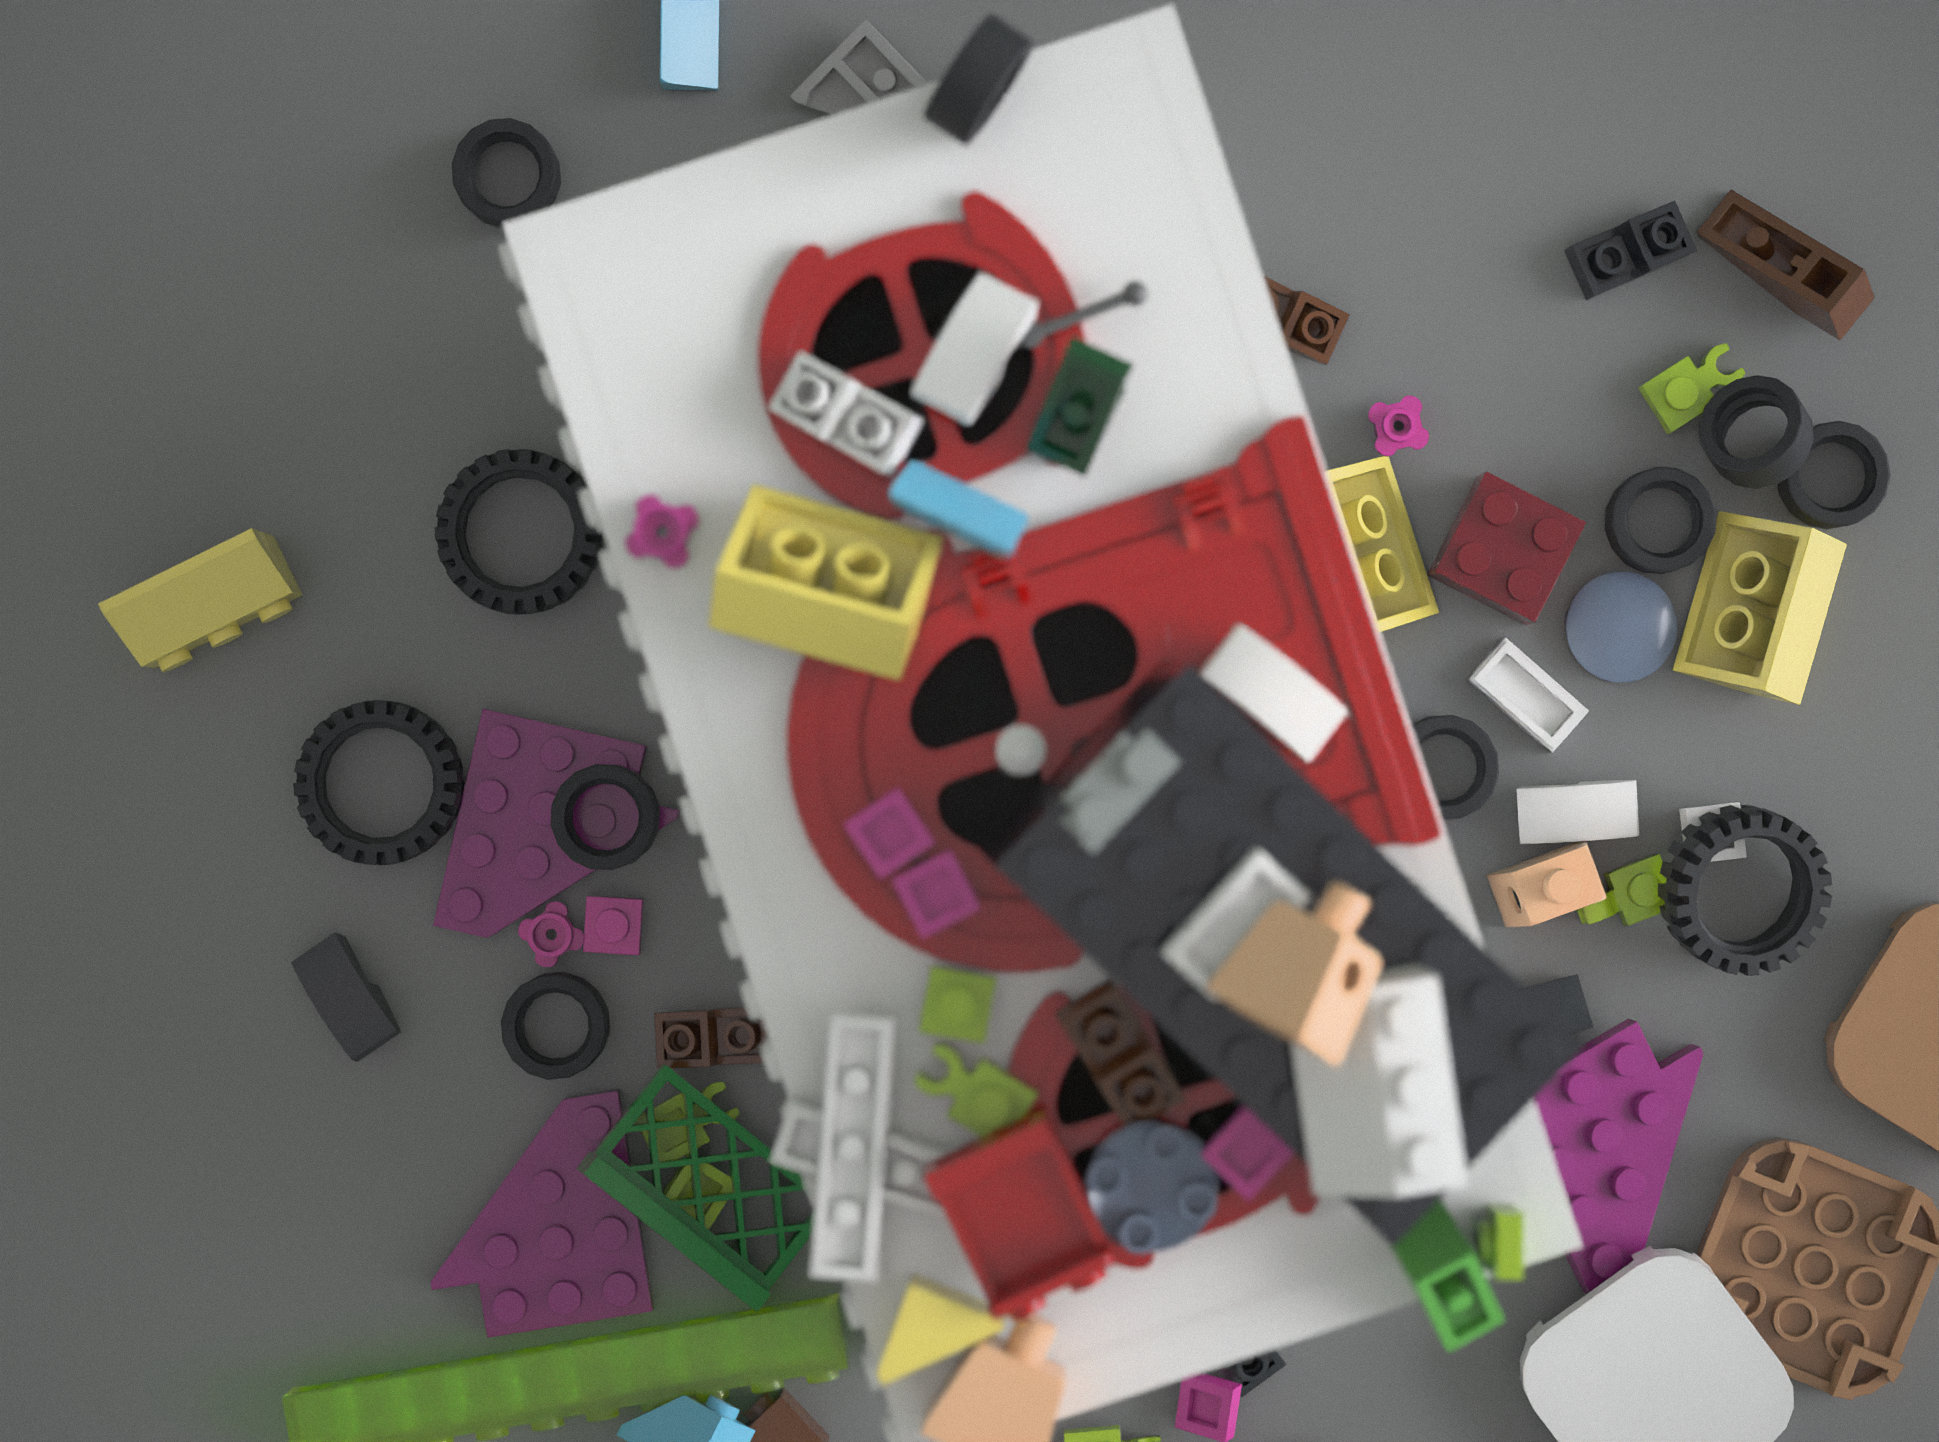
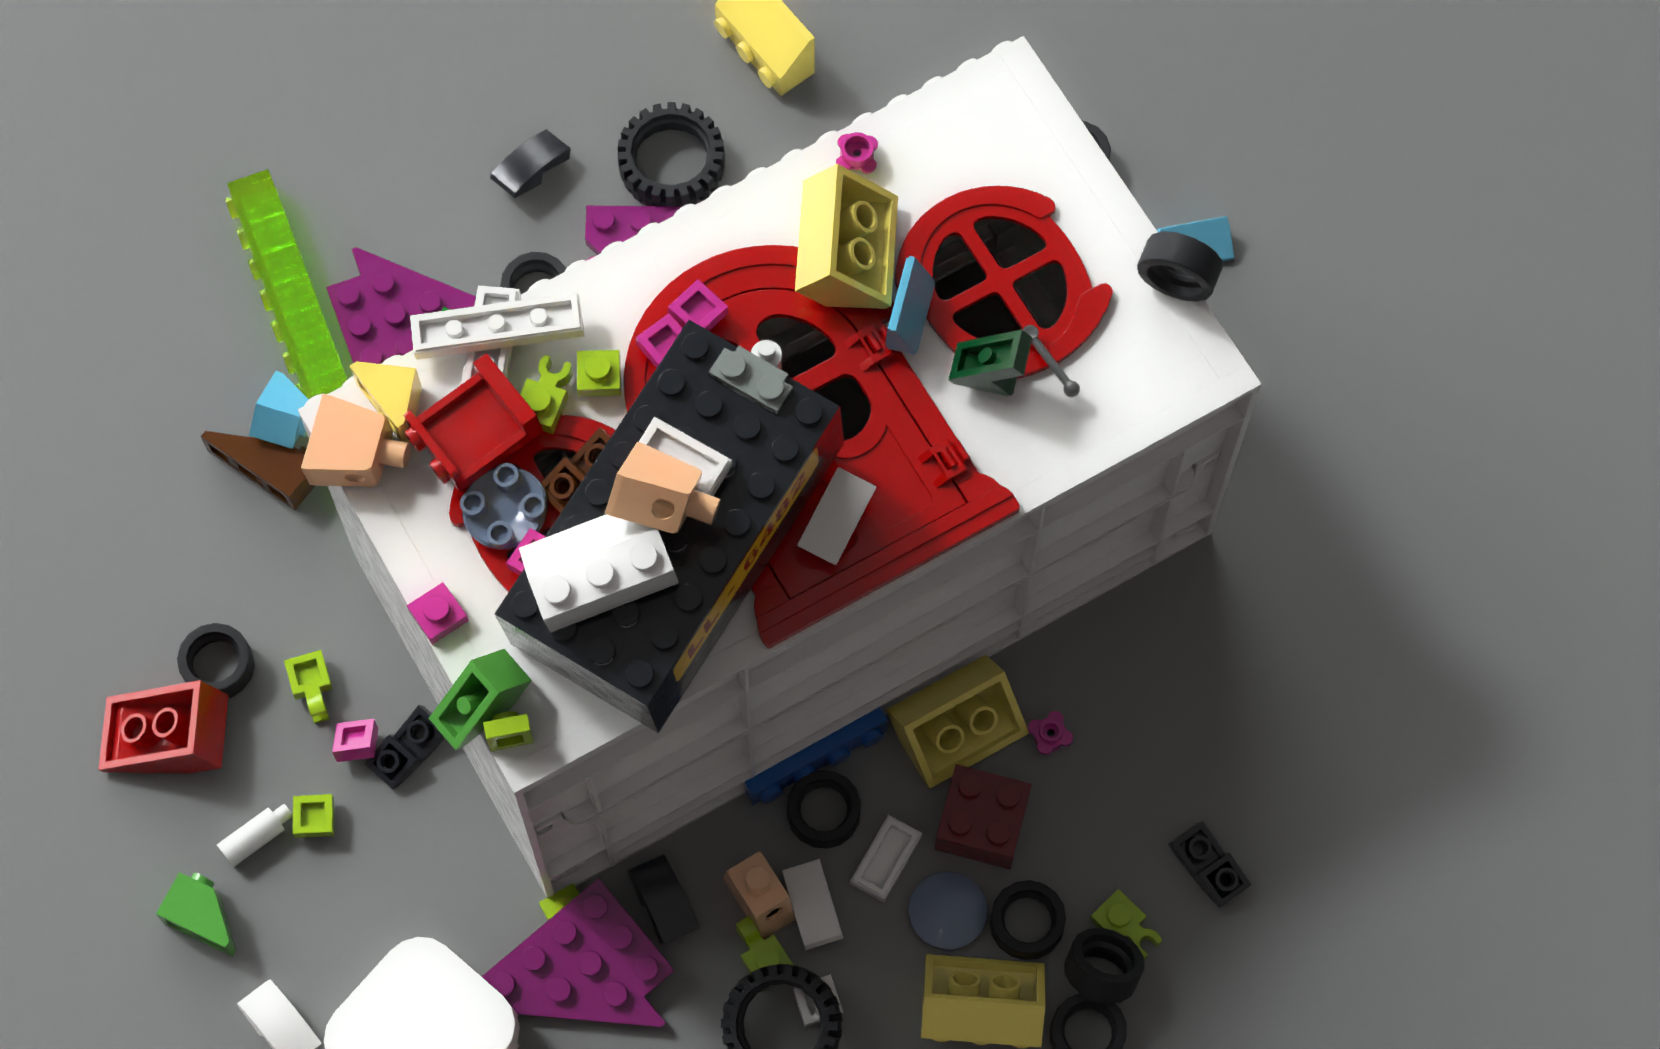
camera: 75 degrees right, 20 degrees down
(845, 414) = (954, 237): white slope -> none
(974, 347) = (1004, 293): white slope -> none
(1289, 1312) = (437, 613): none -> dark pink plate
(1306, 322) = (1106, 645): reddish brown slope -> none
(1789, 264) = (1226, 970): reddish brown slope -> none

